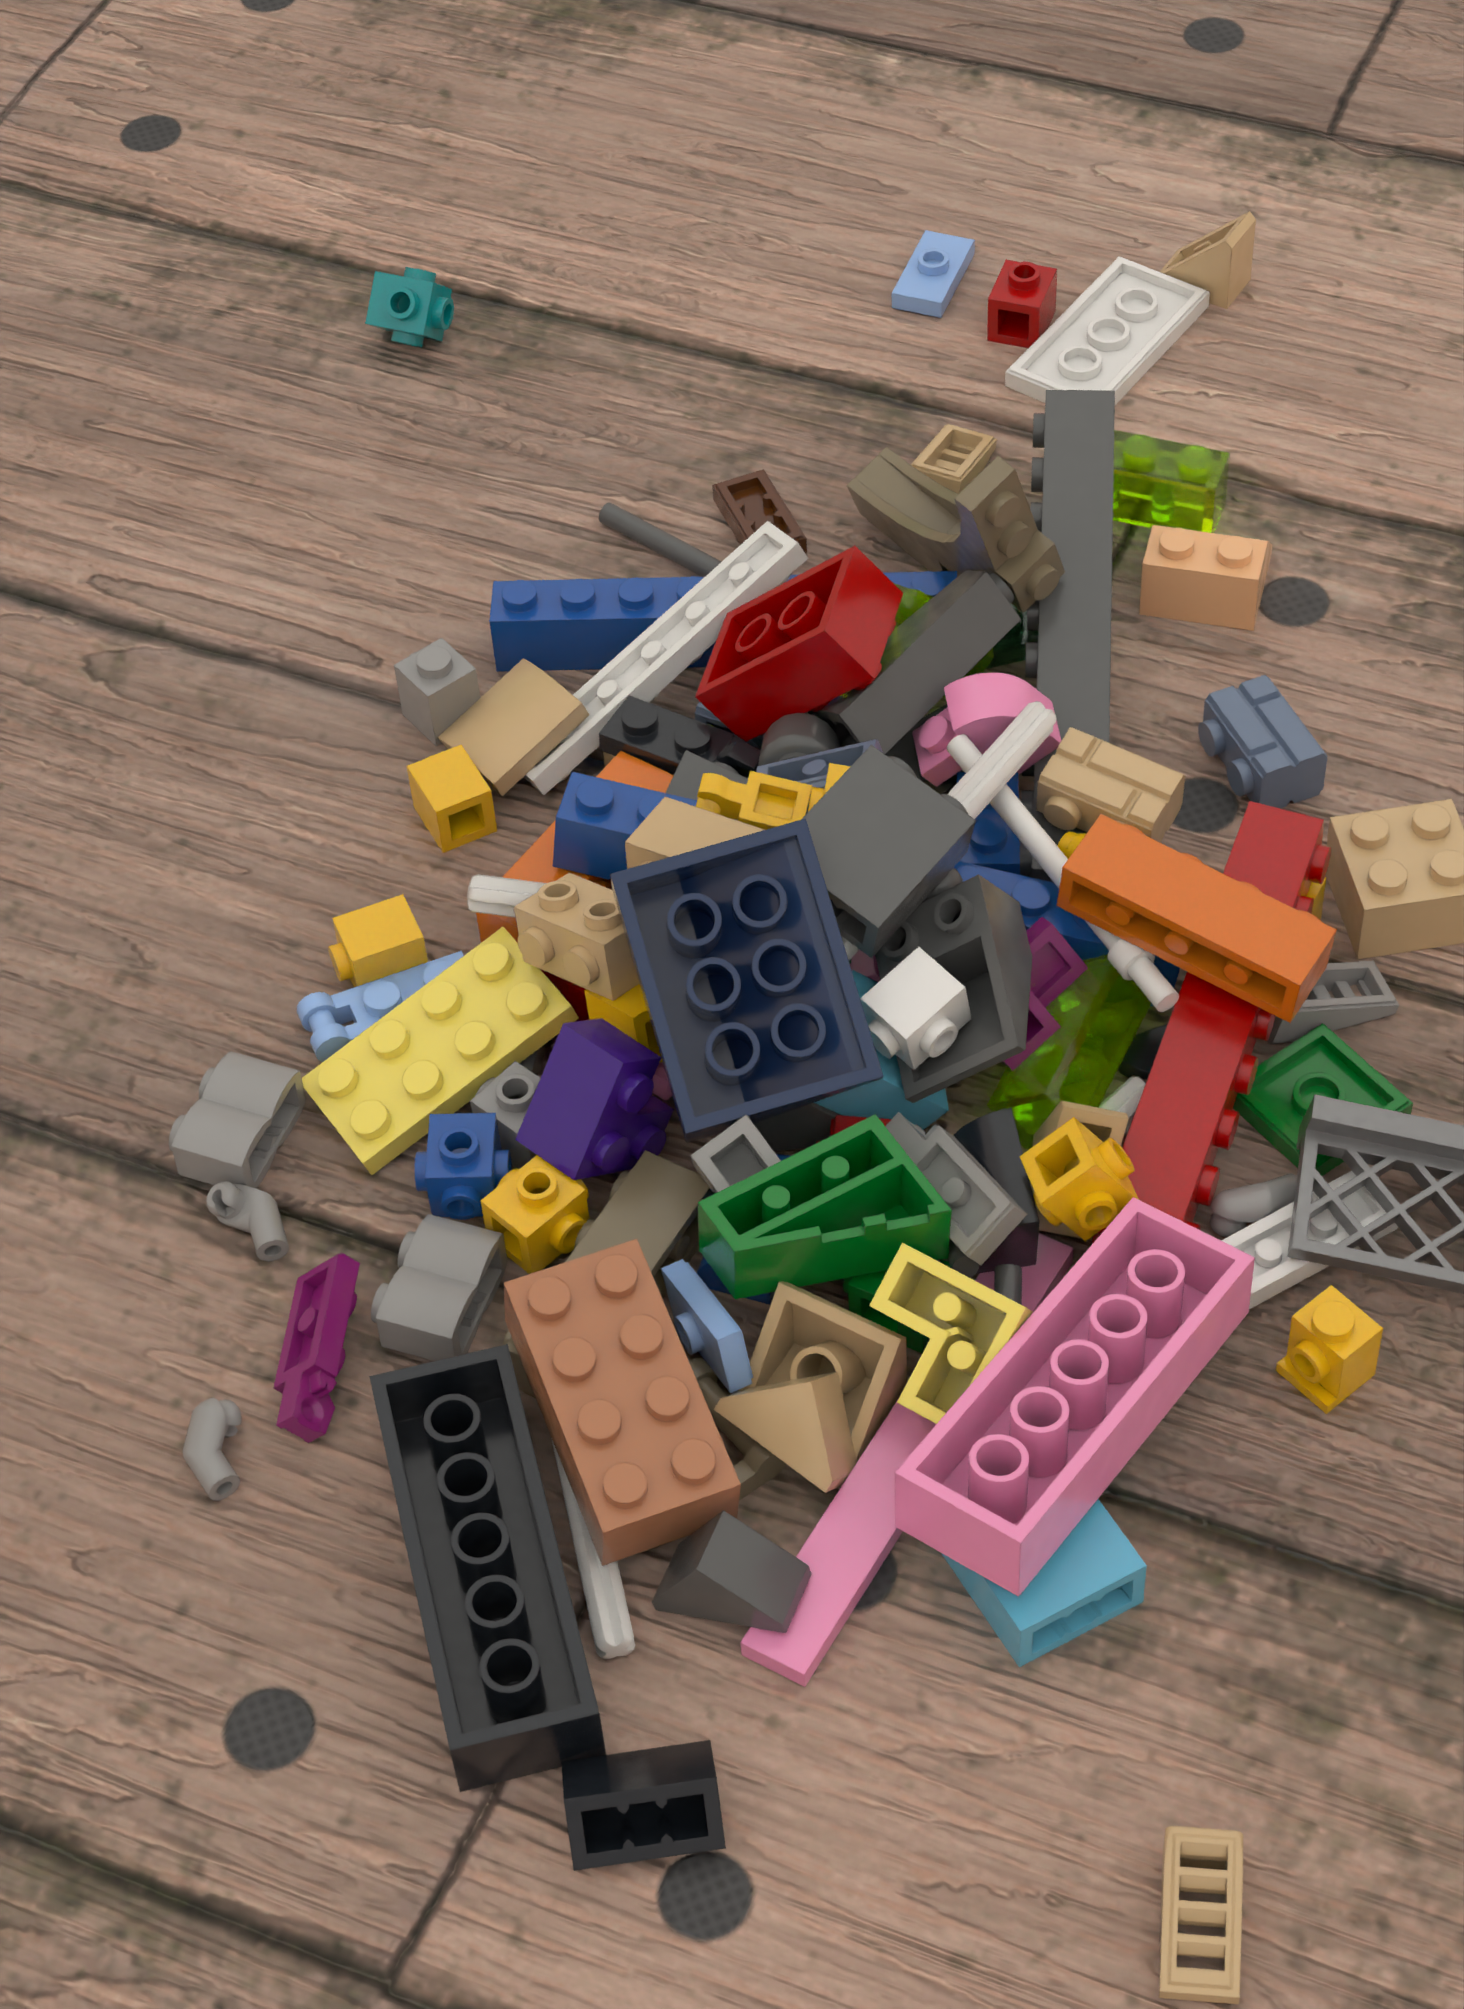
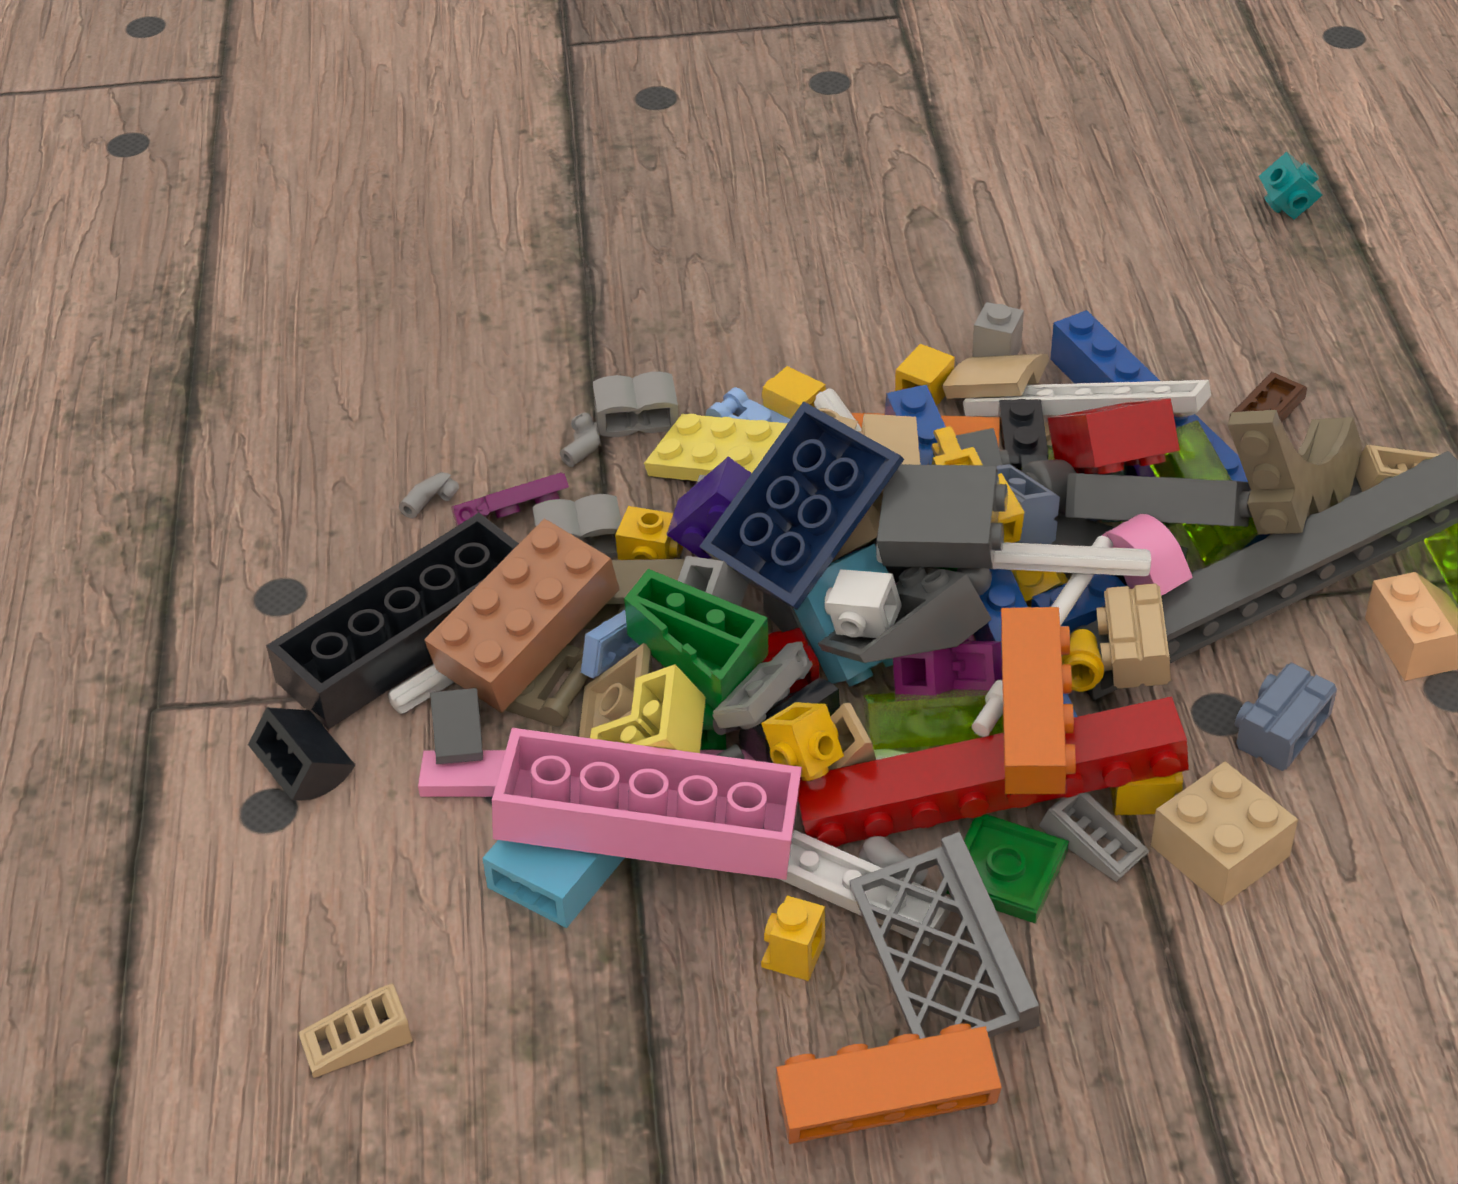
camera: 60 degrees right, 5 degrees down
(461, 1163) = (658, 488): blue brick -> none
(657, 540) = (1212, 373): dark grey bar -> none
(799, 1424) = (573, 703): tan slope -> none

